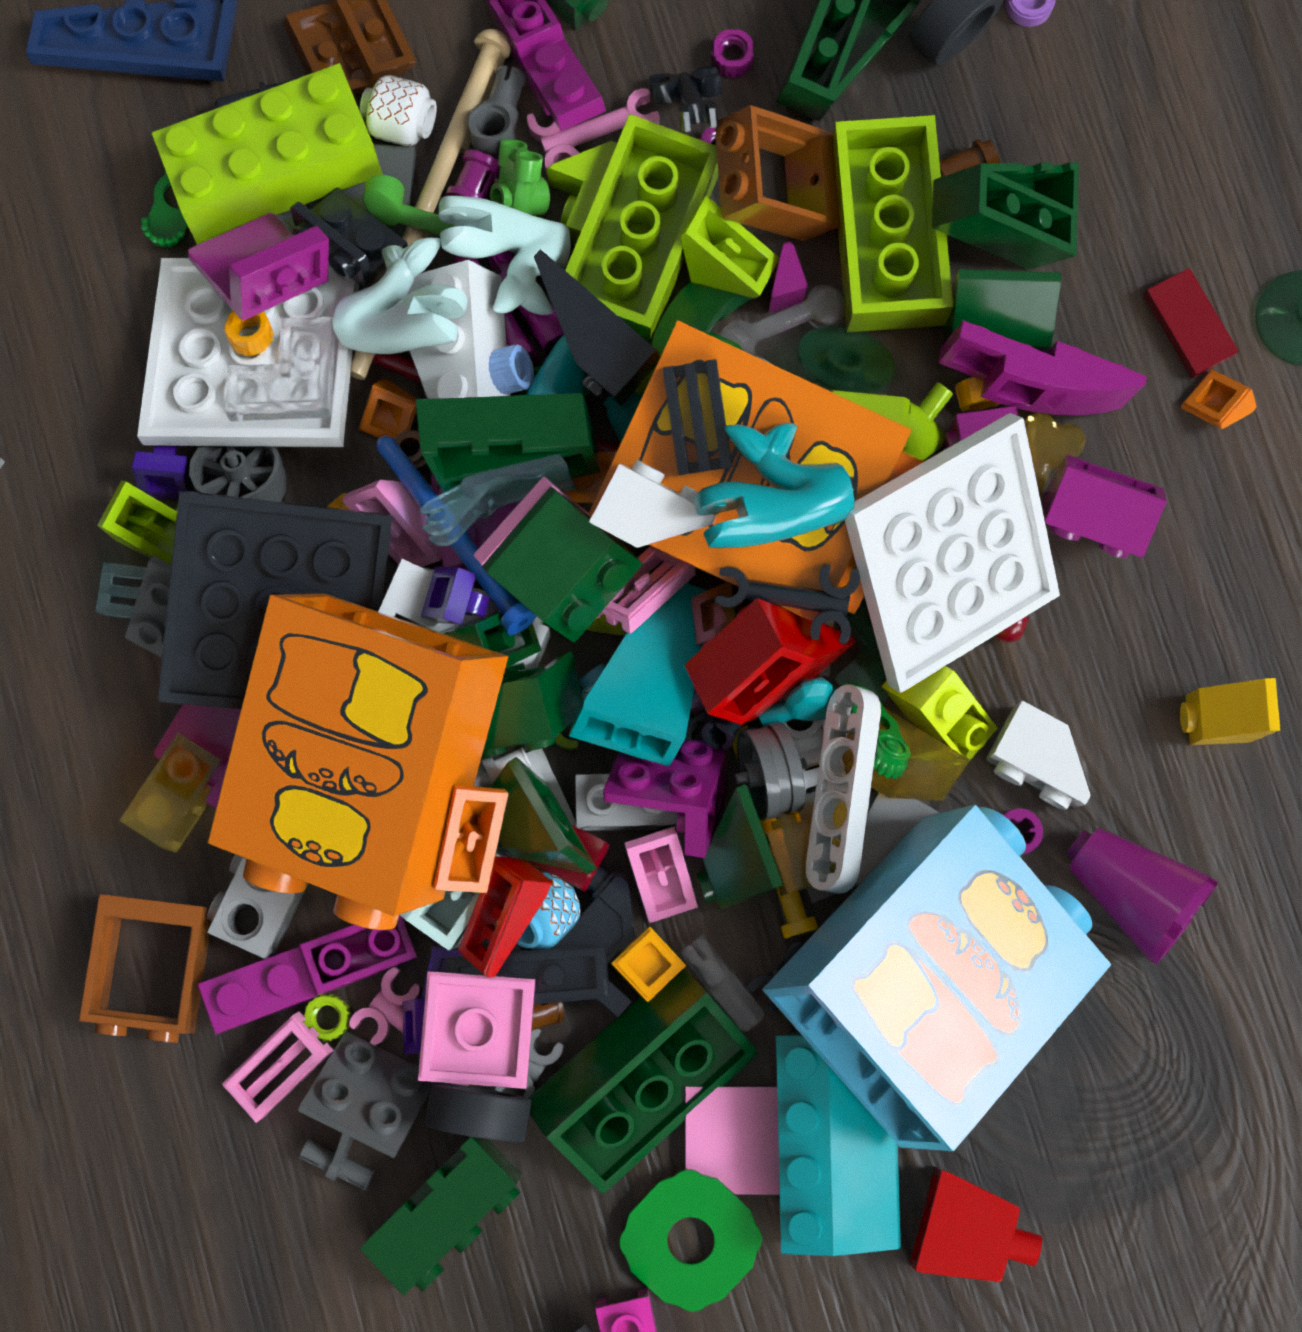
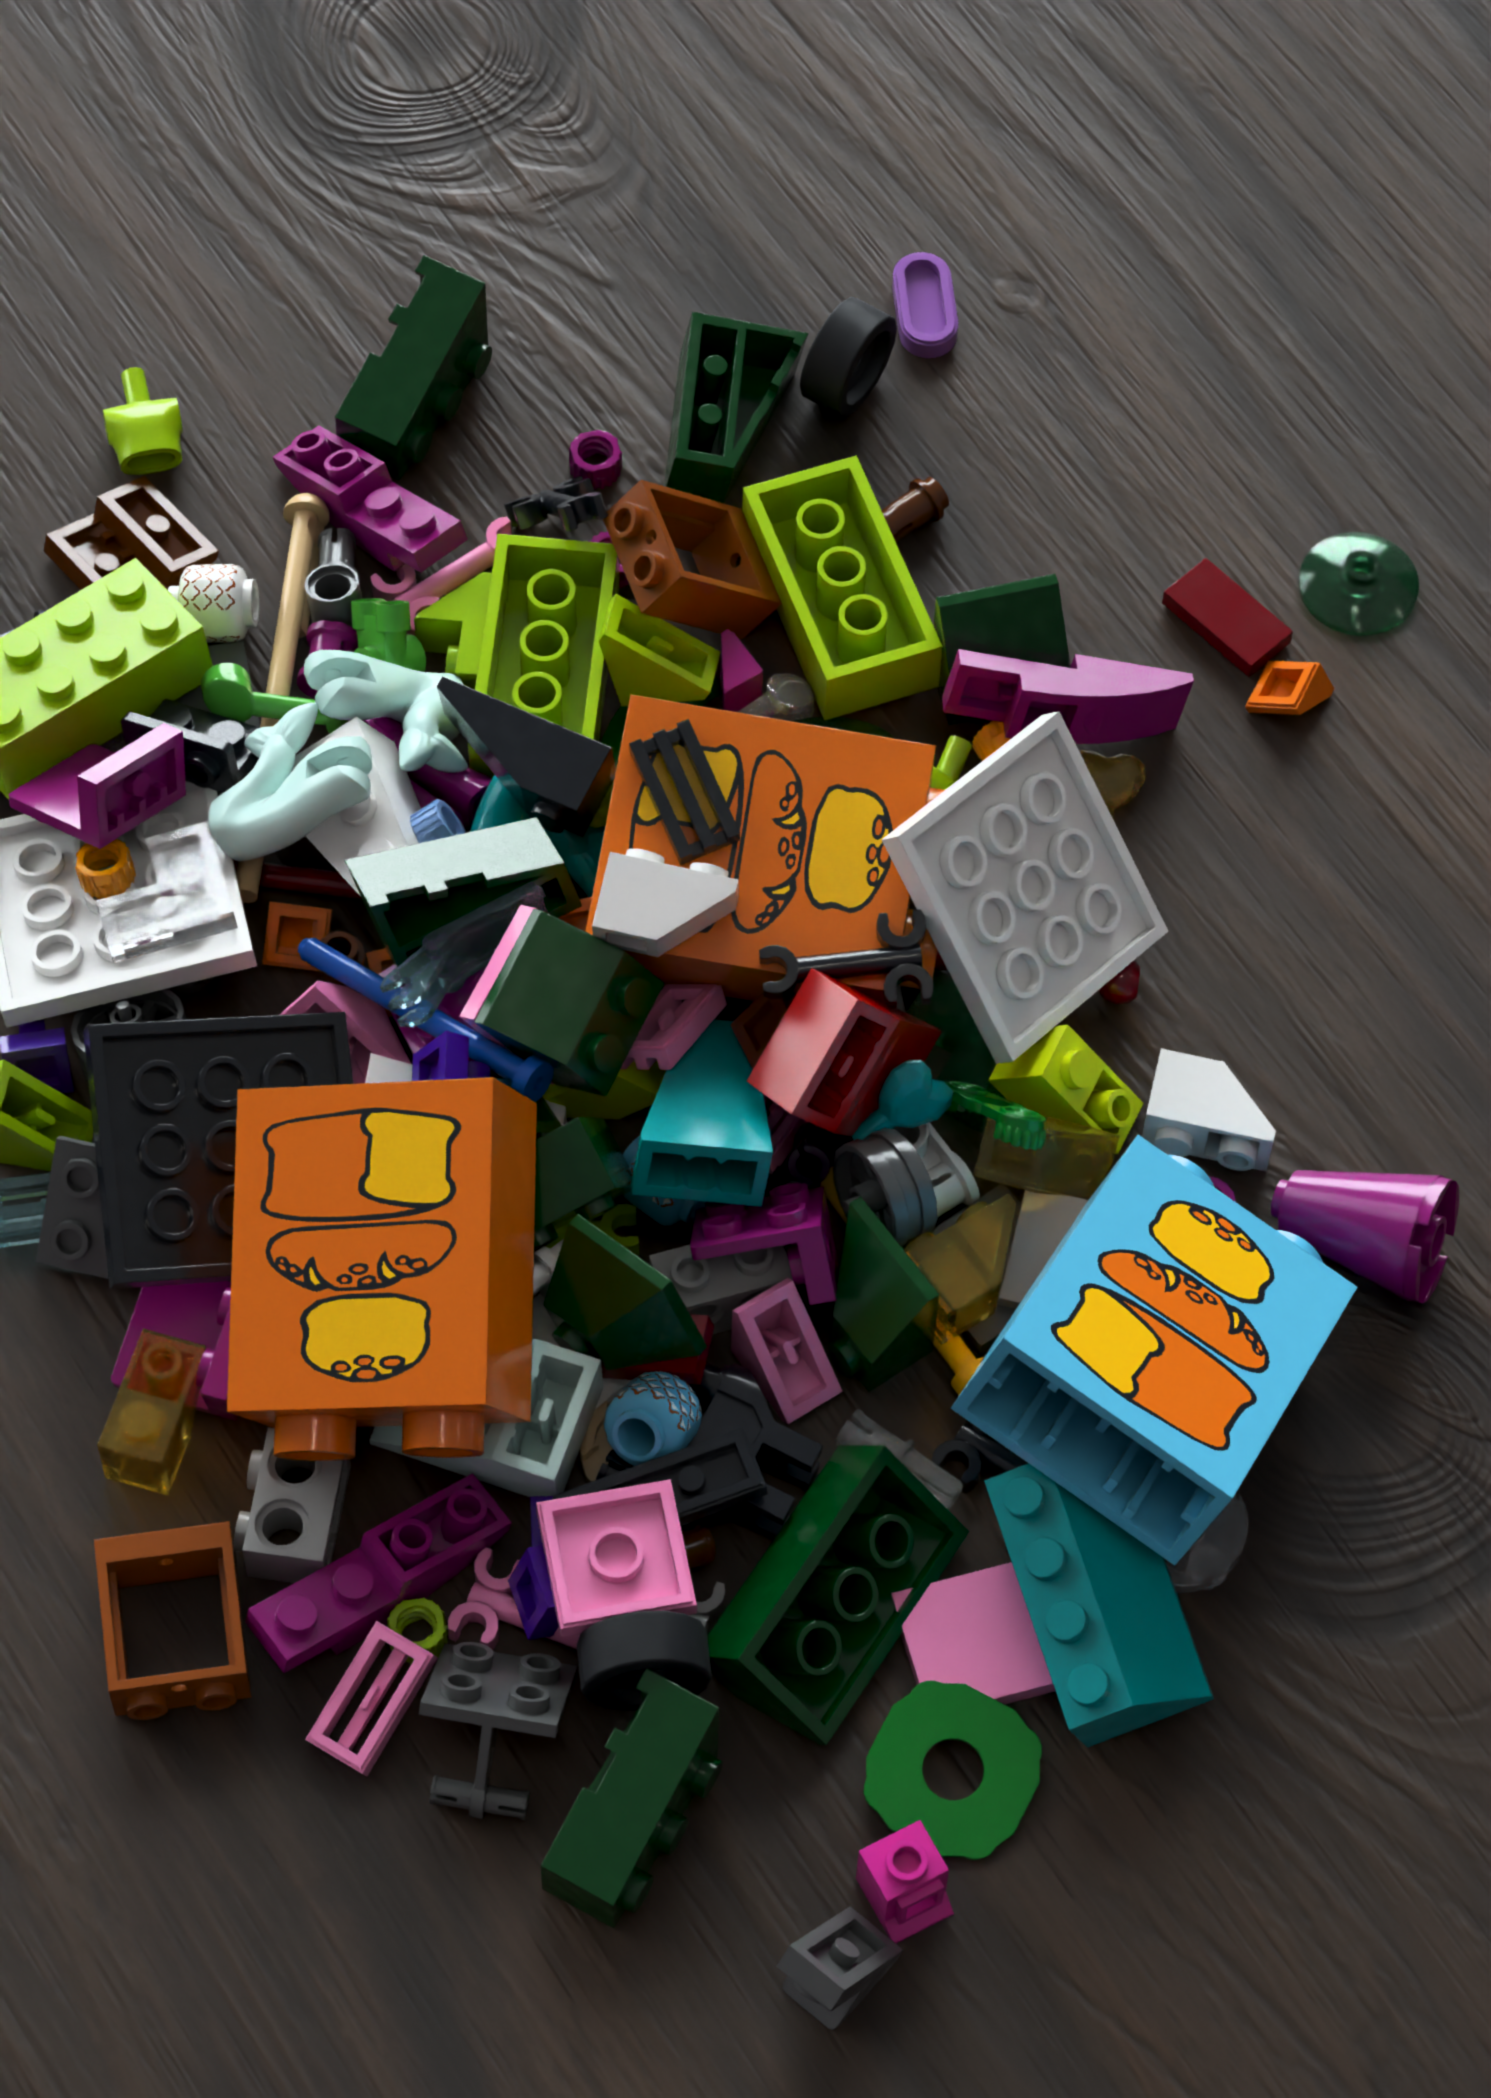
camera: 15 degrees left, 20 degrees down
(470, 839) = (548, 1320): orange slope -> none
(511, 899) = (612, 1393): red slope -> none
(648, 964) = (802, 1446): light orange tile -> none
(801, 502) = (807, 844): teal piece -> none
(851, 789) = (1000, 1258): white beam -> none
(969, 1232) = (1293, 1662): red torso -> none
(1011, 210) = (974, 529): dark green wedge -> none
(1103, 507) = (1186, 811): magenta slope -> none
(1231, 712) = (1412, 1005): yellow slope -> none

